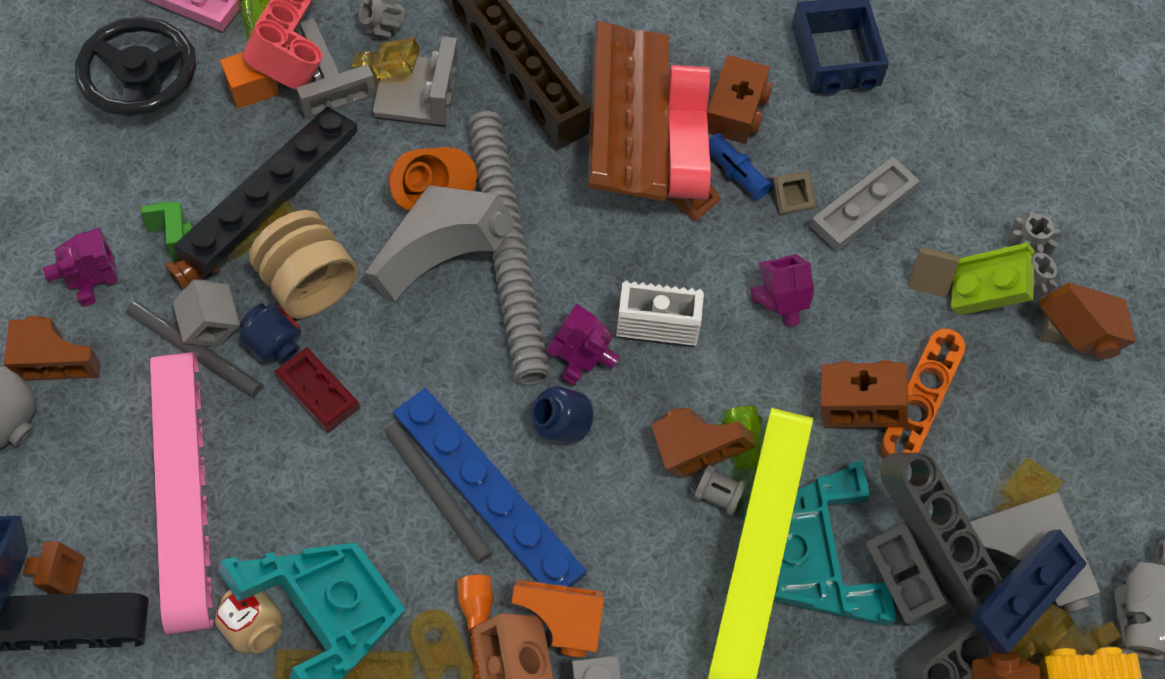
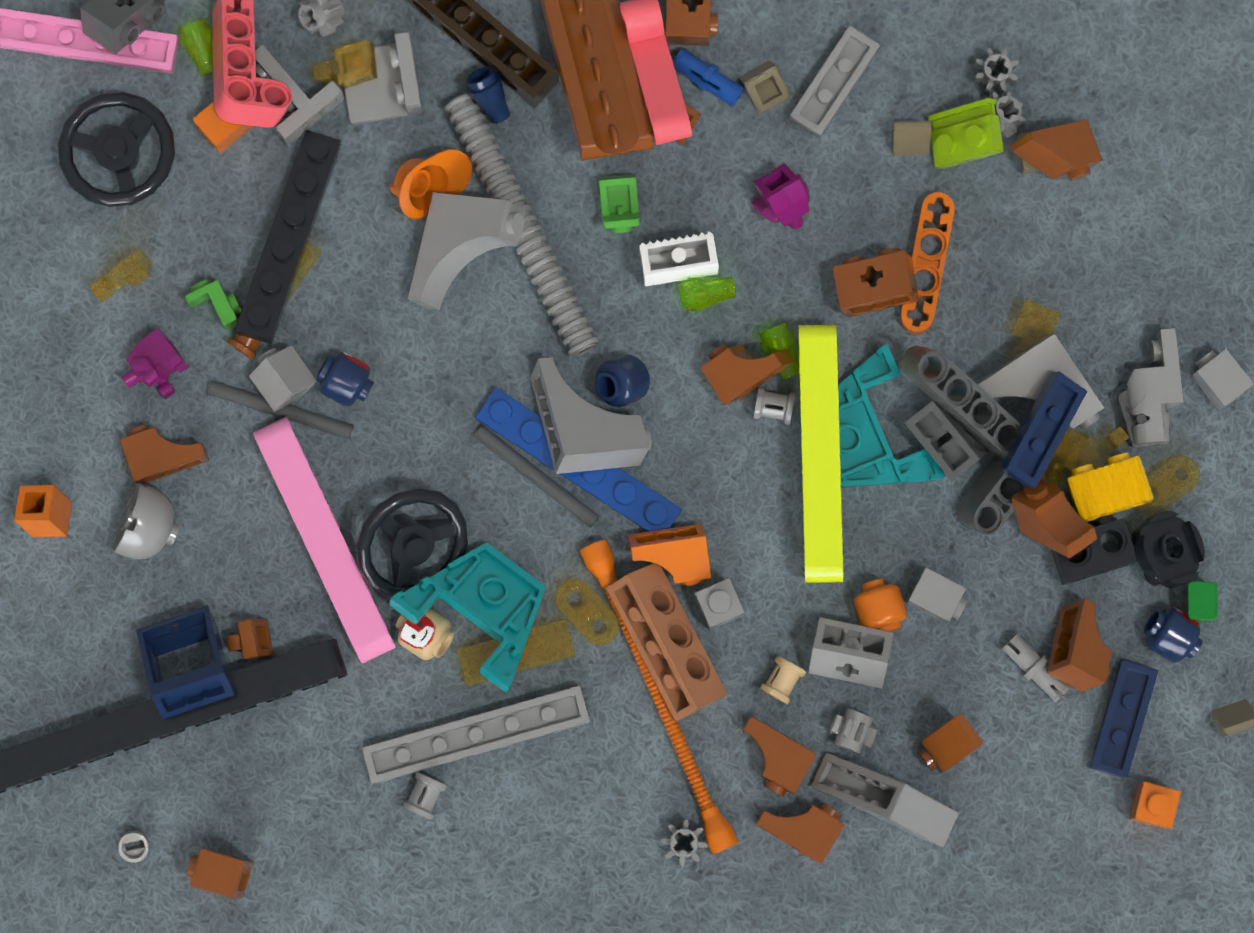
camera: 10 degrees left, 20 degrees up
(95, 176) = (129, 271): none -> clear yellow plate
(268, 508) = (409, 539): none -> black piece
(302, 264) = (346, 305): tan wheel -> none
(317, 389) = (403, 417): dark red plate -> none
(504, 456) = (581, 433): none -> light grey arch
(516, 119) = (488, 92): none -> dark blue cone
(582, 343) = (619, 306): magenta piece -> none
(614, 248) = (619, 202): none -> bright green bracket
(678, 358) = (705, 292): none -> clear neon green cone

